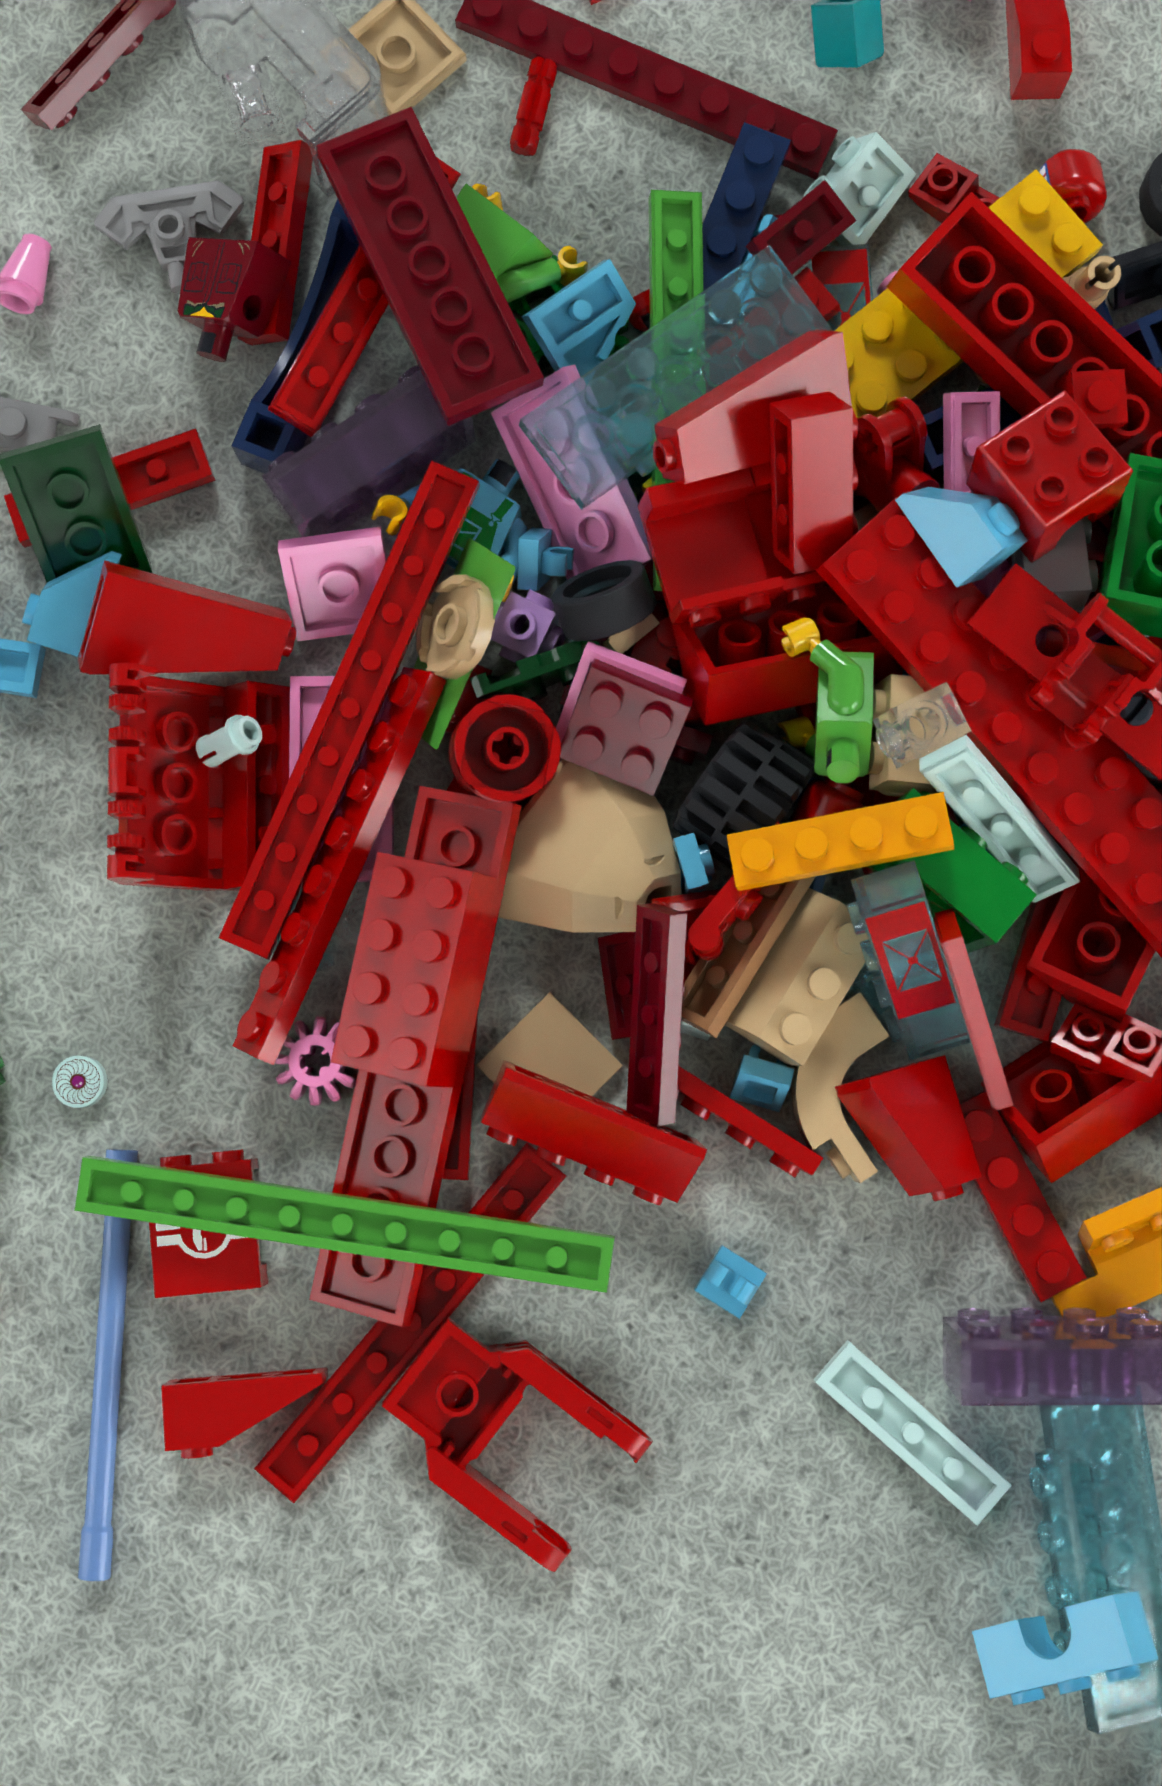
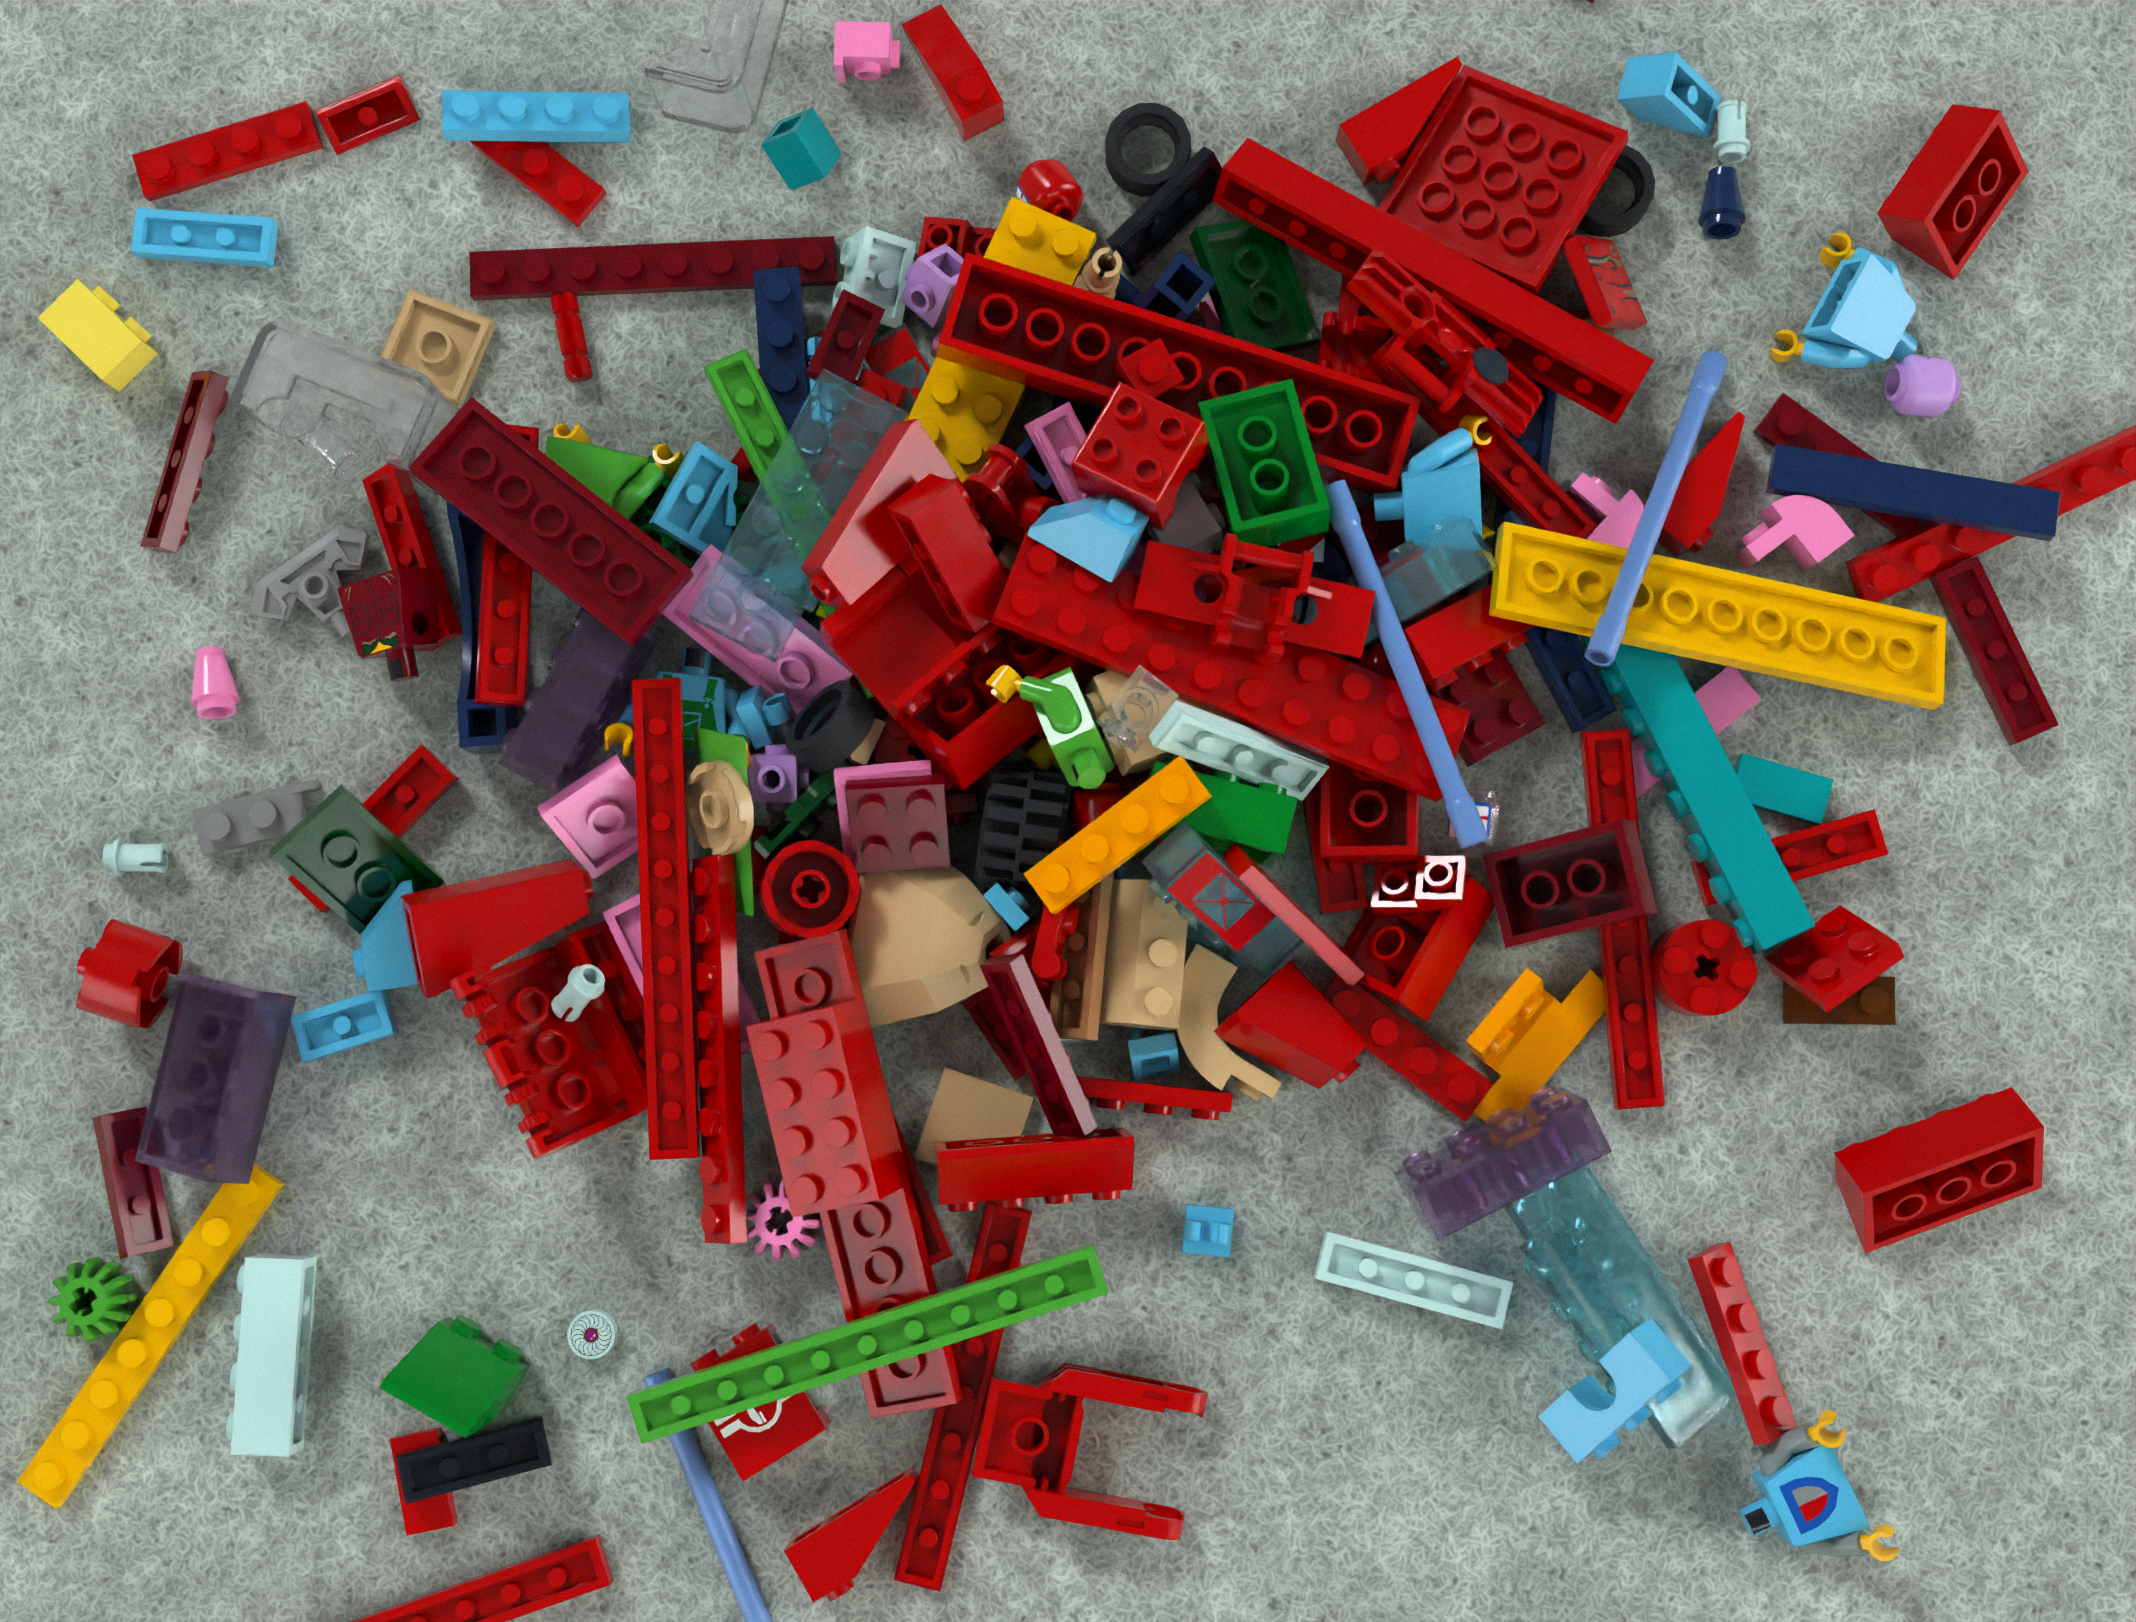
camera: 25 degrees left, 0 degrees up
(912, 219) = (932, 284): none -> lavender brick

